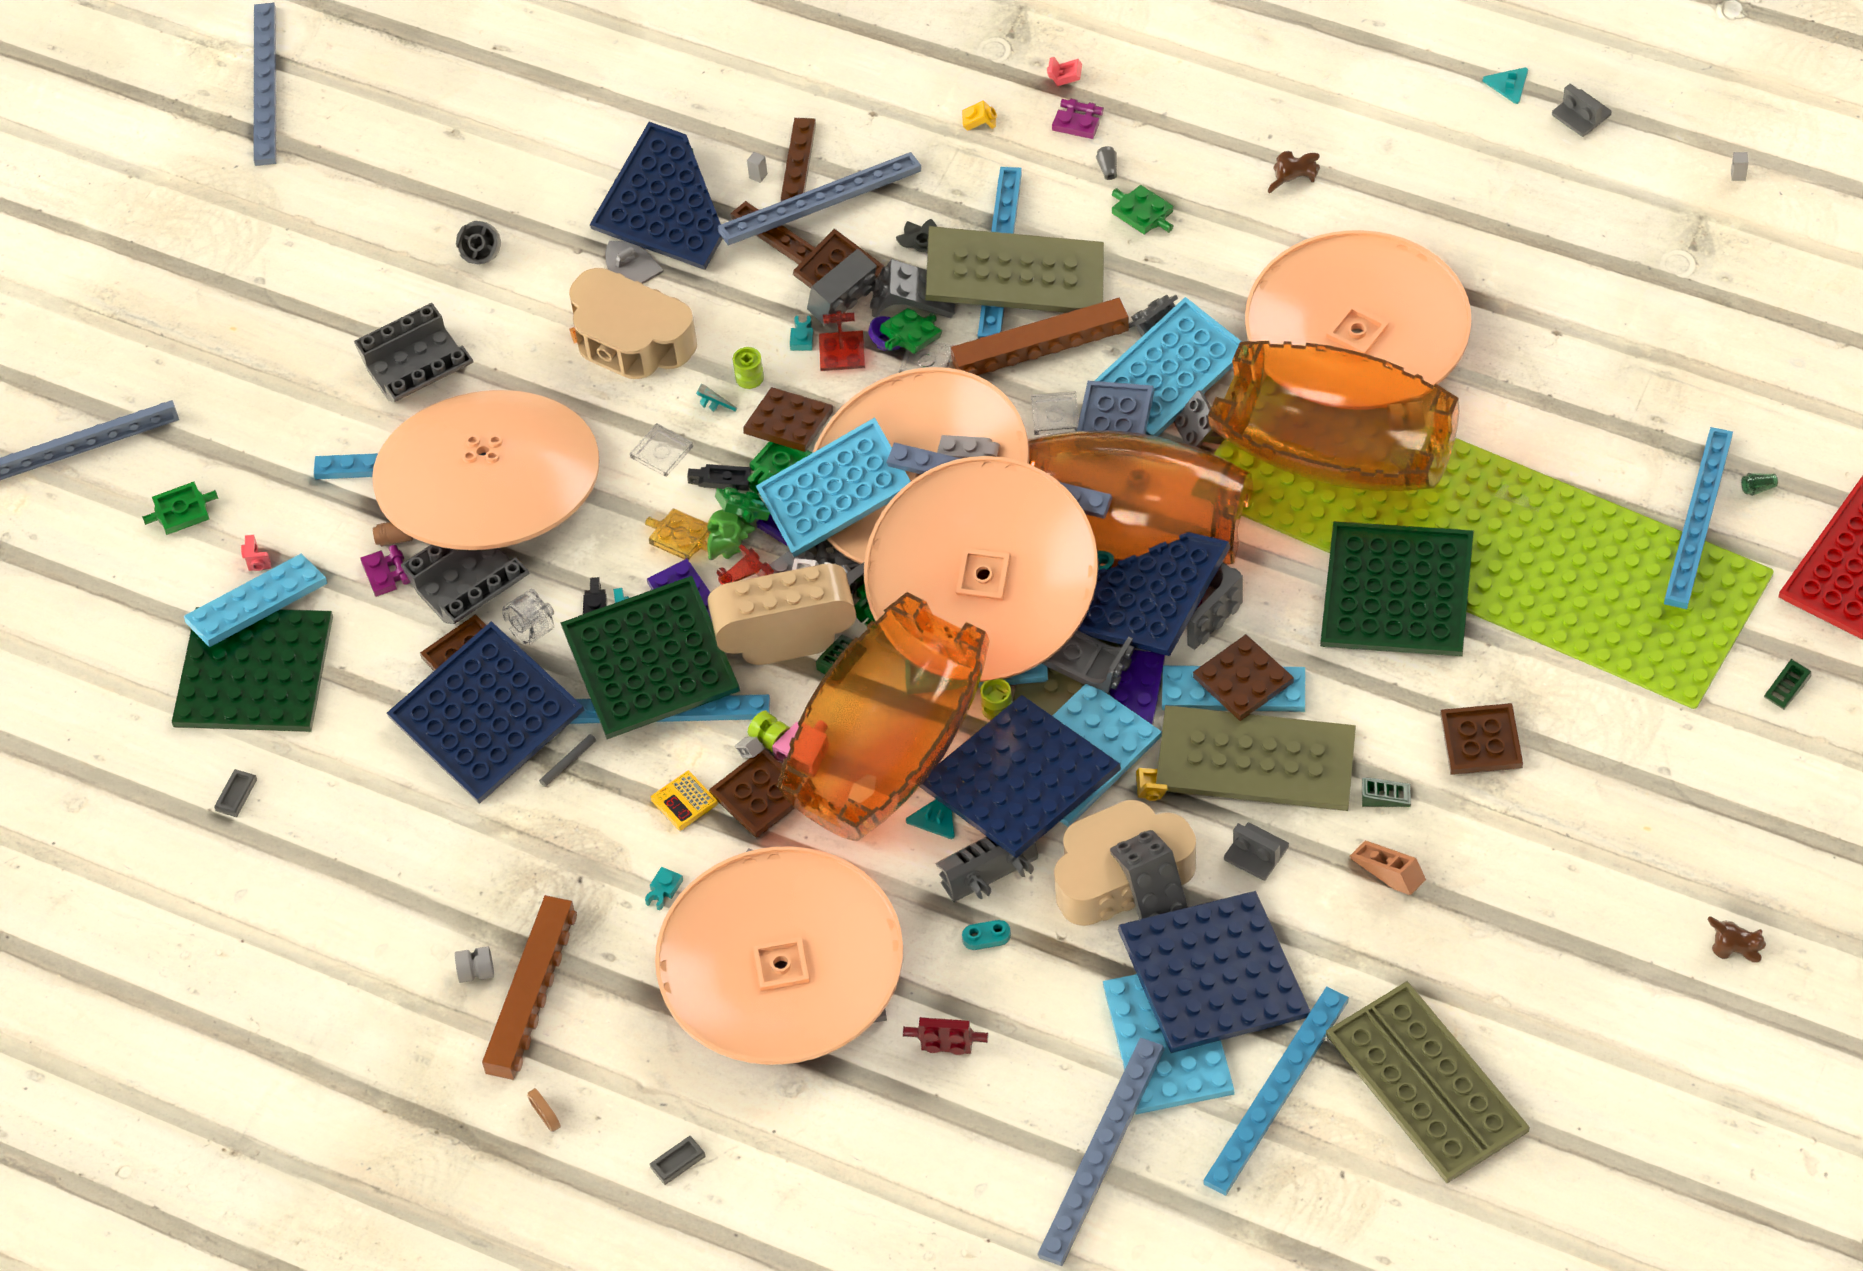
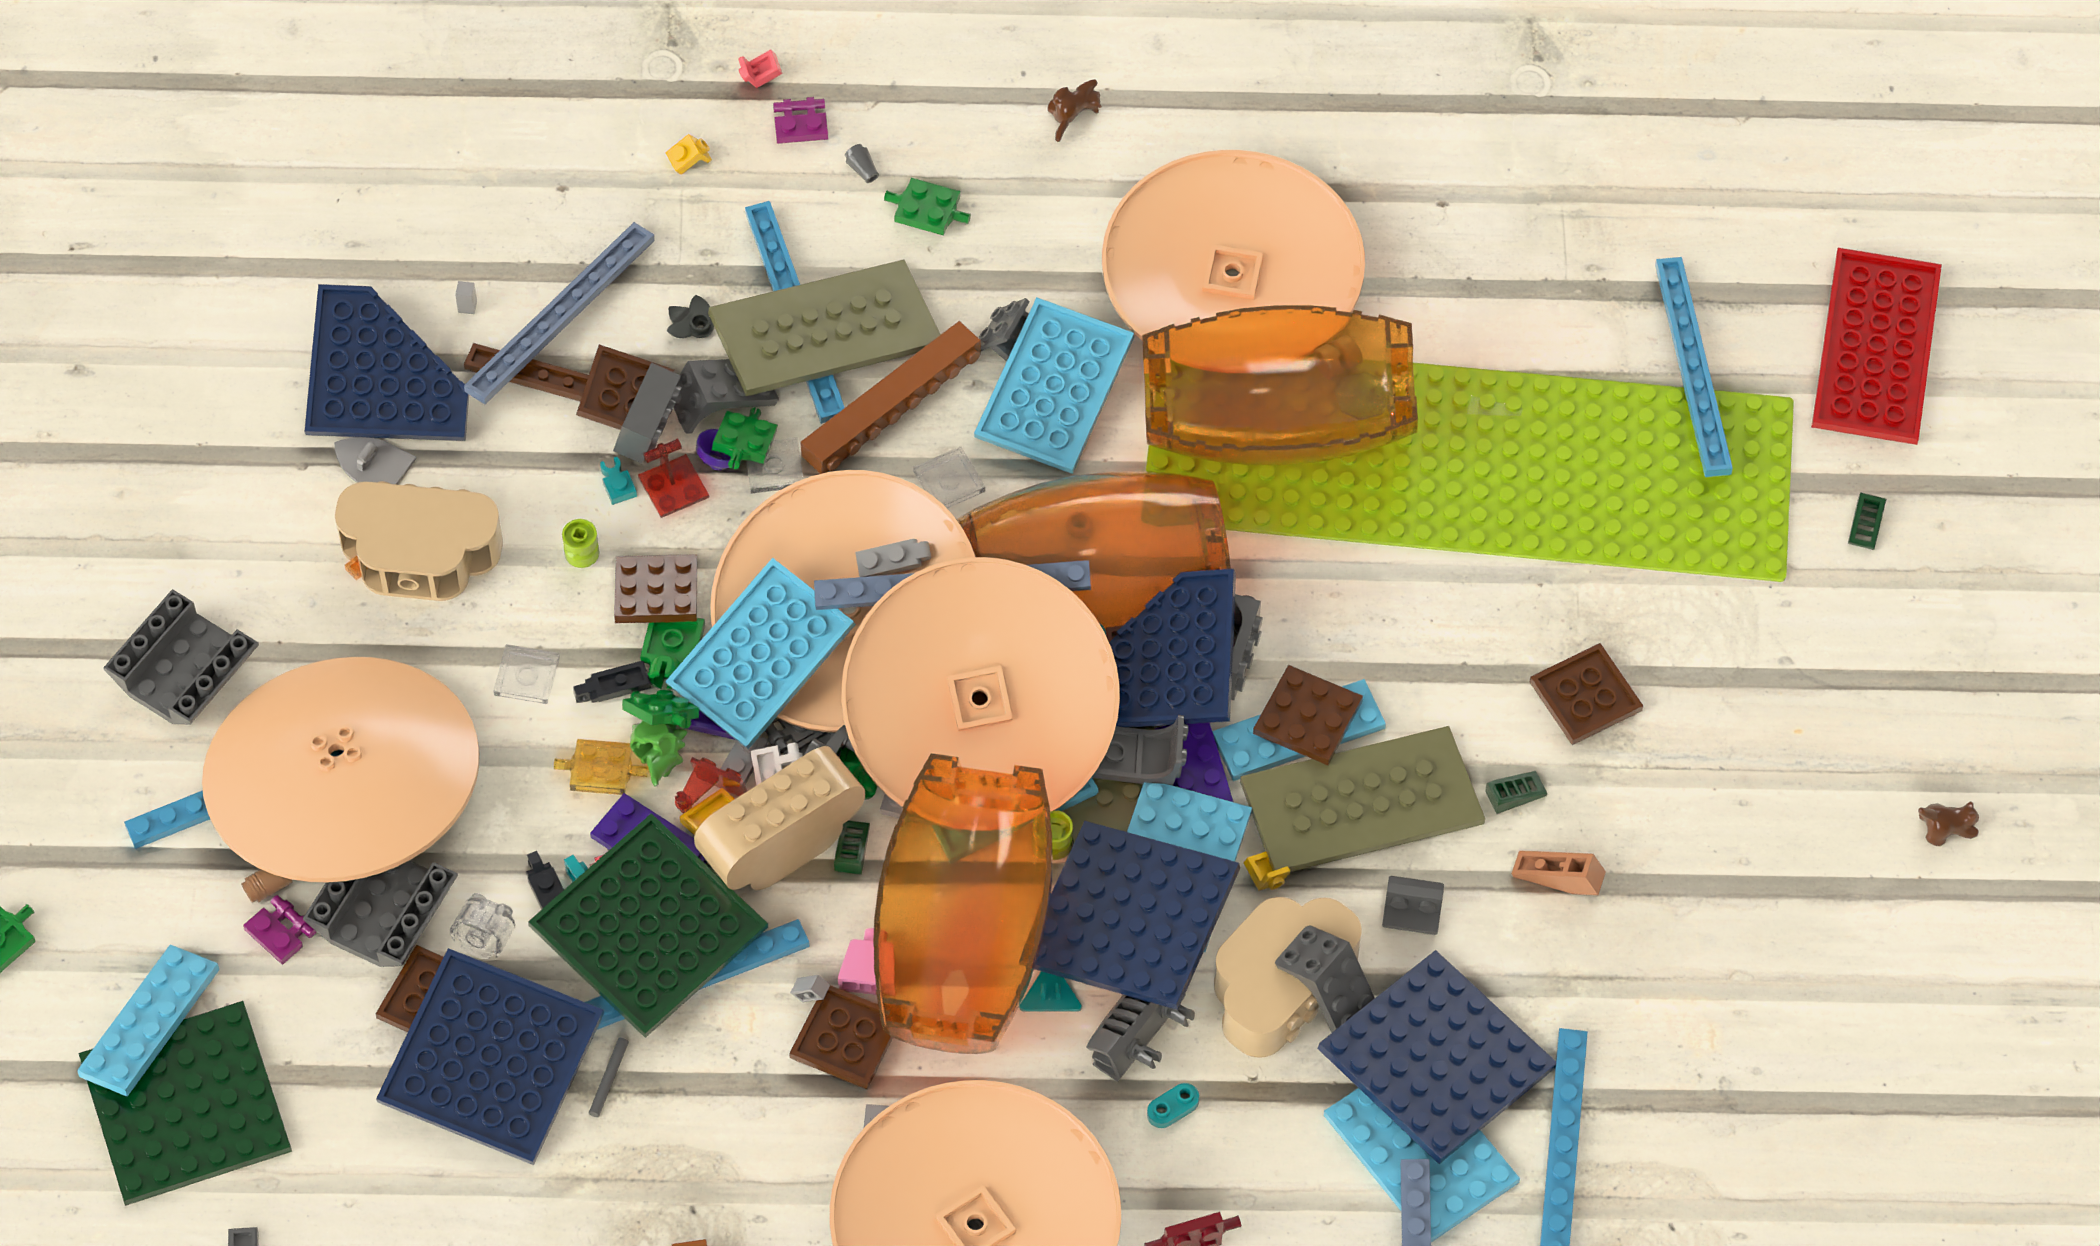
camera: 30 degrees left, 5 degrees up
(254, 560) = (118, 973): coral bracket -> none
(478, 242) = (188, 497): dark grey cylinder -> none
(664, 884) = (791, 1181): teal plate -> none
(684, 800) = (764, 1075): yellow tile -> none
(708, 394) = (555, 594): teal piece -> none
(766, 729) = (831, 965): lime wheel -> none
(798, 157) = (506, 273): reddish brown plate -> none
(1116, 407) = (1019, 455): sand blue plate -> none
(1194, 422) = (1116, 438): dark grey bracket -> none
(1397, 588) = (1420, 556): dark green plate -> none
(1427, 1082) = (1711, 1093): olive plate -> none
(1758, 482) = (1732, 306): clear green cone -> none

